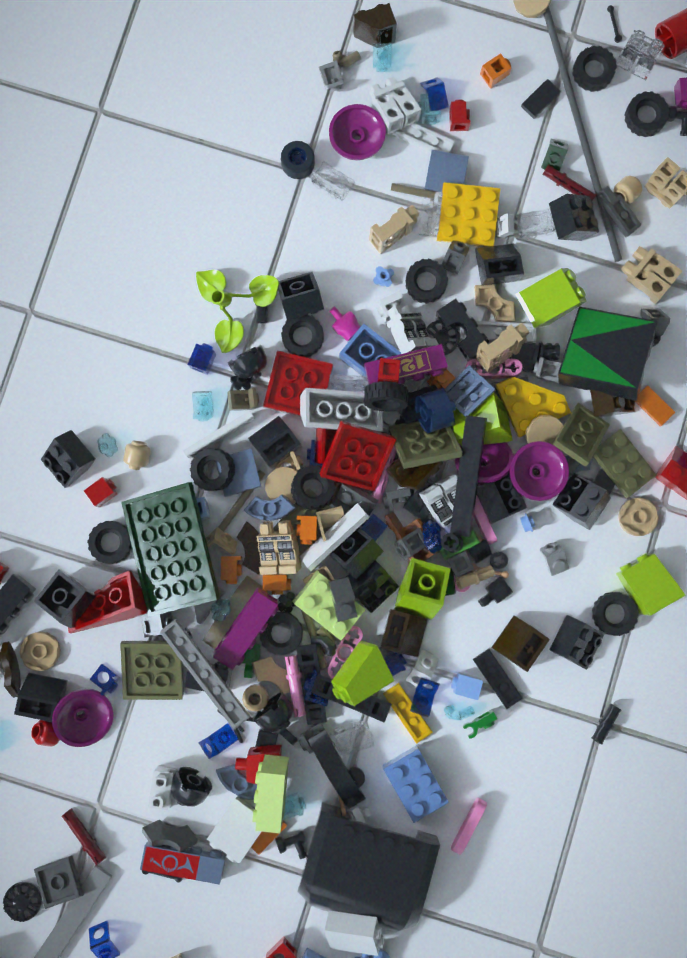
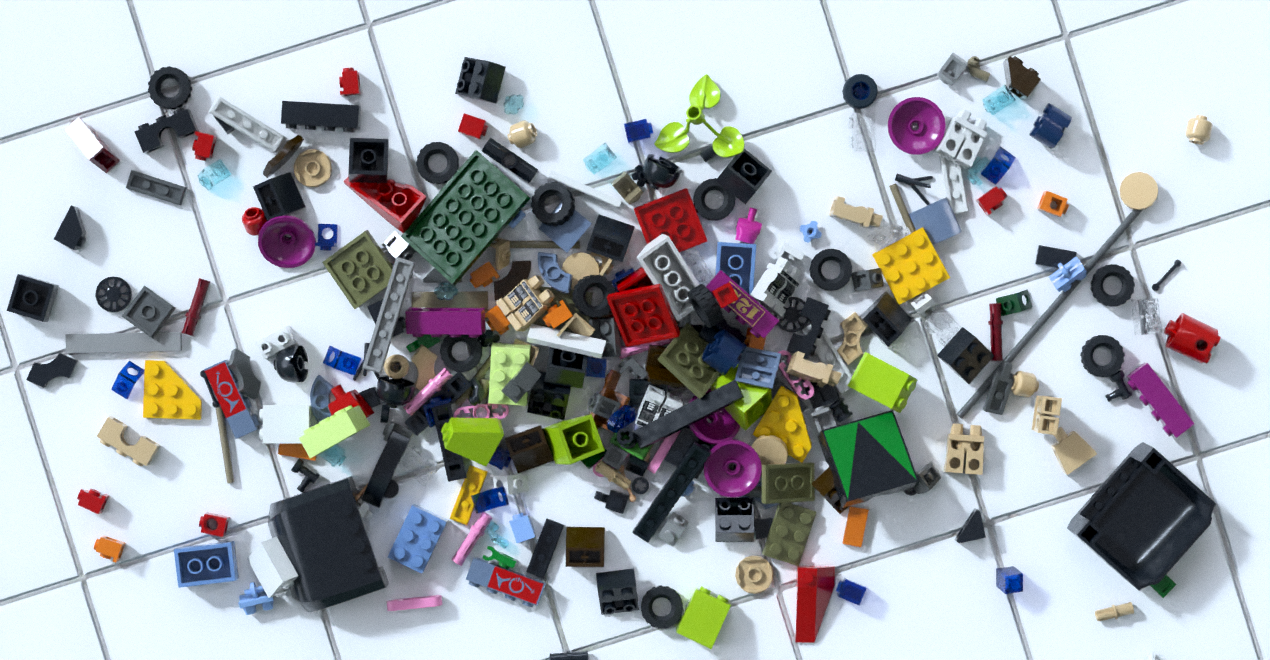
camera: 50 degrees right, 5 degrees up
(139, 484) = (499, 153): none -> black piece
(140, 915) = (168, 394): none -> yellow plate
(221, 897) = (225, 445): none -> dark tan piece
(405, 160) = (915, 181): none -> black plant
(432, 27) = (1050, 126): none -> dark blue brick
(448, 739) = (476, 532): none -> bright pink pin
(504, 732) = (505, 581): none -> brick
(523, 536) = (671, 492): none -> black tile
(562, 94) = (1067, 274): none -> light blue hips

